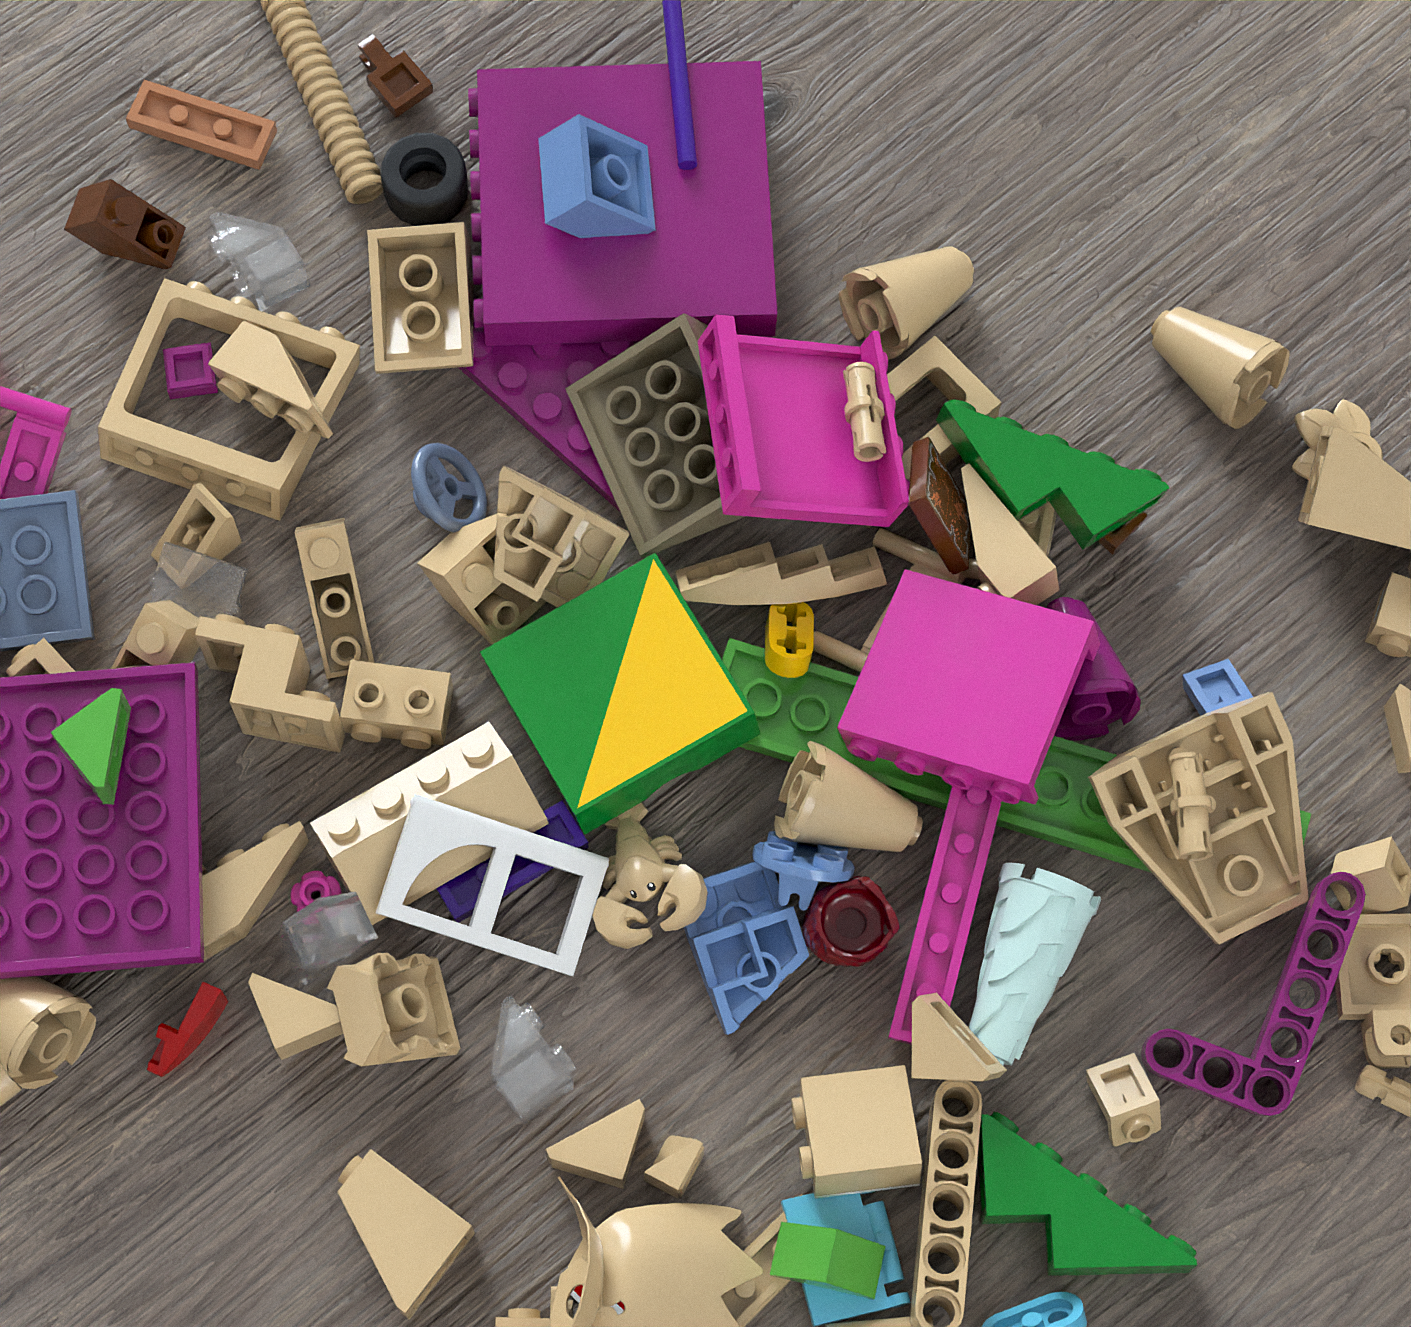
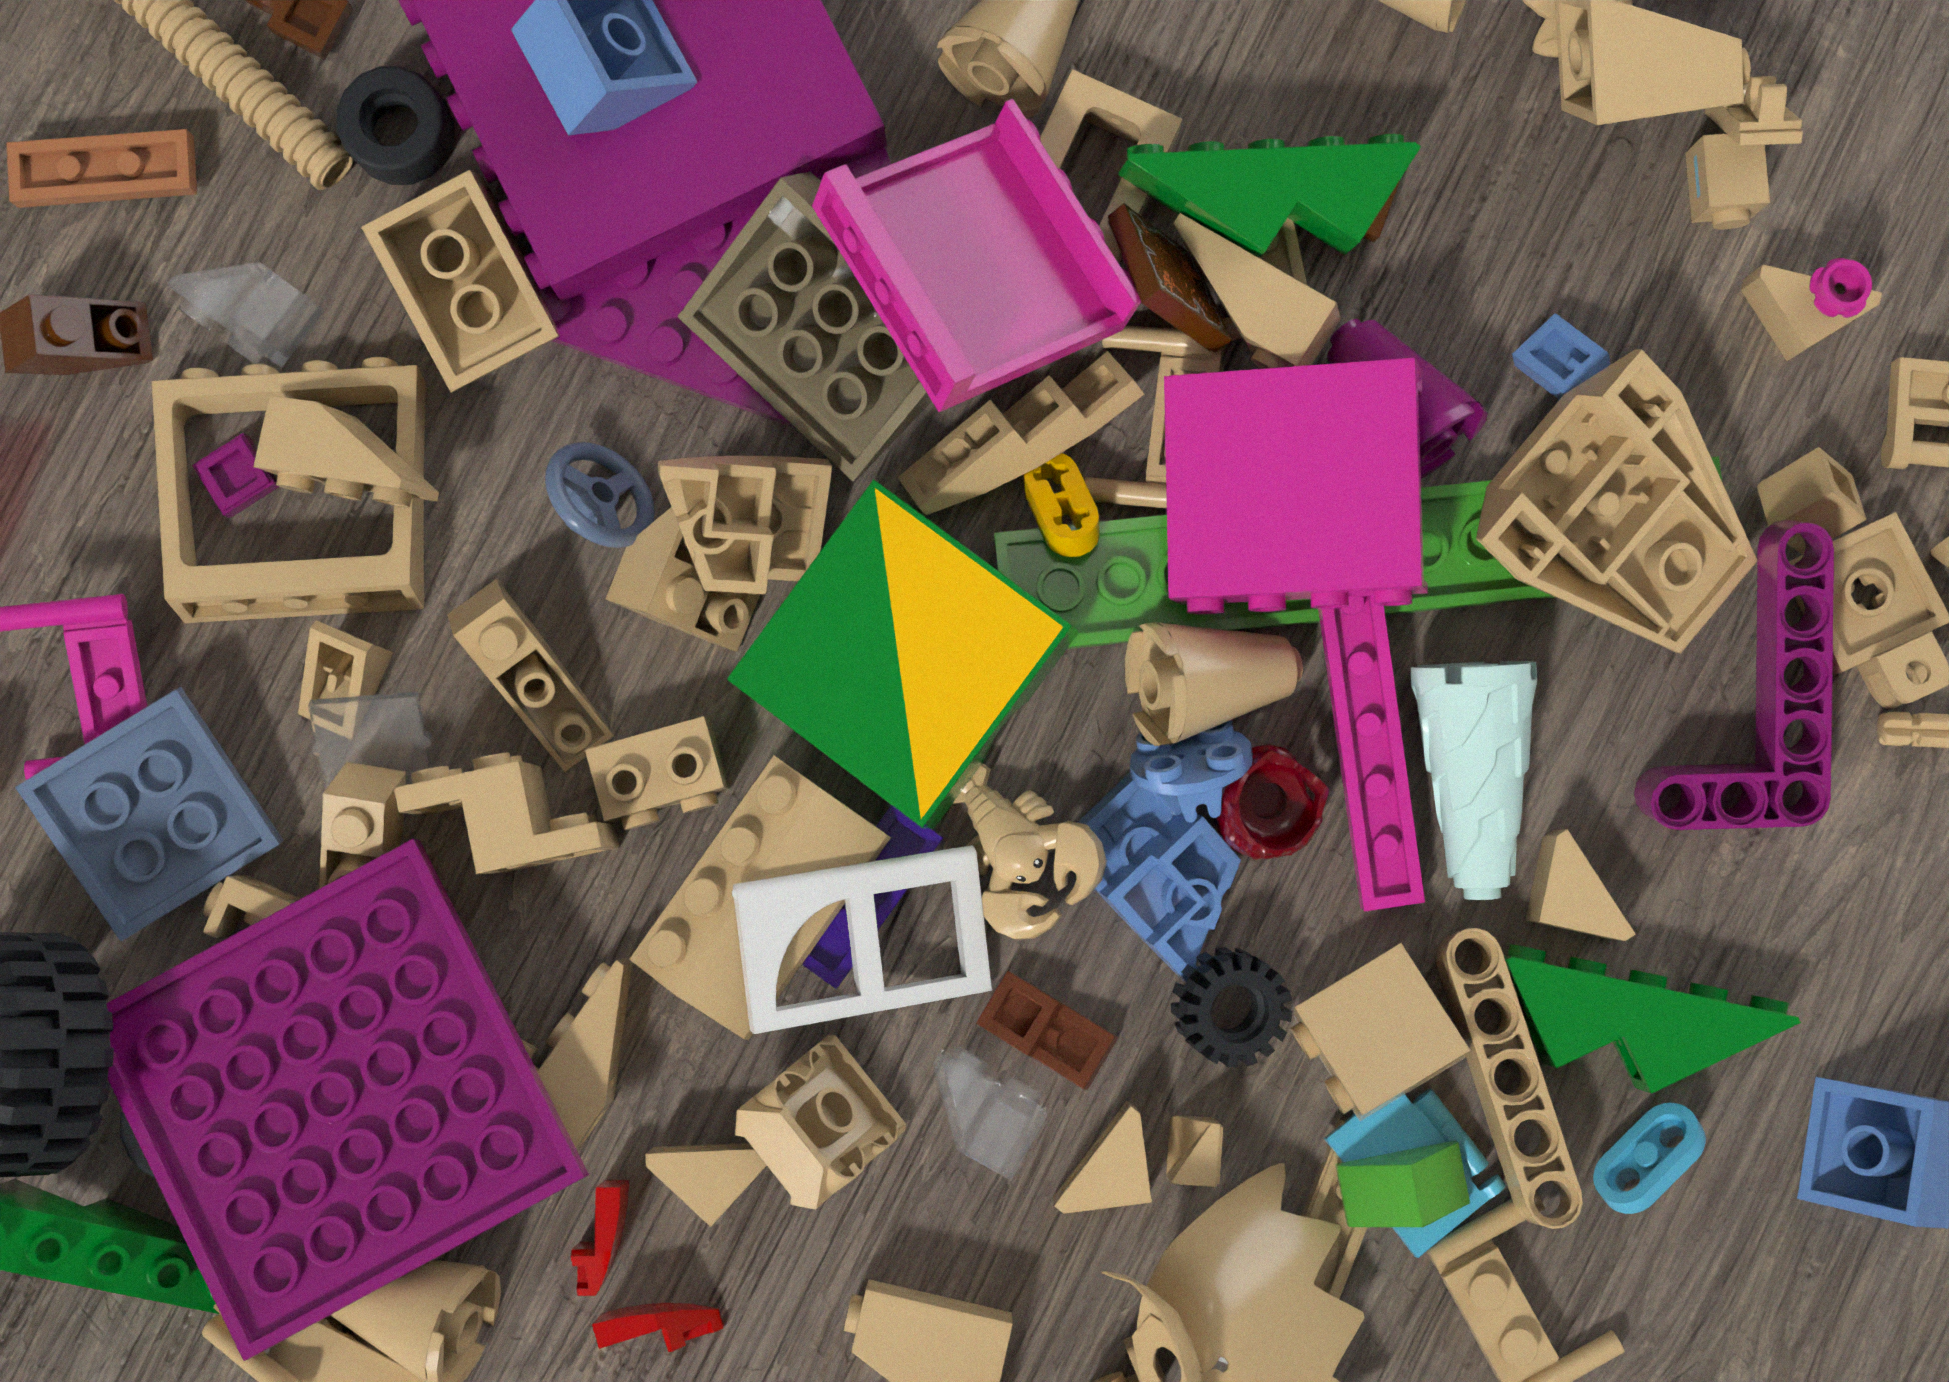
camera: 20 degrees left, 15 degrees up
(96, 741) = (350, 992): bright green slope -> none
(213, 1123) = (676, 1320): none -> red slope
(311, 882) = (654, 1031): dark pink plate -> none
(325, 935) = (709, 1076): clear slope -> none
(602, 1025) = (1047, 1030): none -> copper slope
(780, 1077) = (1259, 1025): none -> black tyre
(864, 411) = (1040, 208): tan pin -> none
(946, 1046) = (1442, 906): tan slope -> none
(1058, 1097) = (1571, 894): none -> tan slope
(1125, 1099) = (1644, 865): tan bracket -> none
(1191, 806) = (1600, 520): tan pin -> none

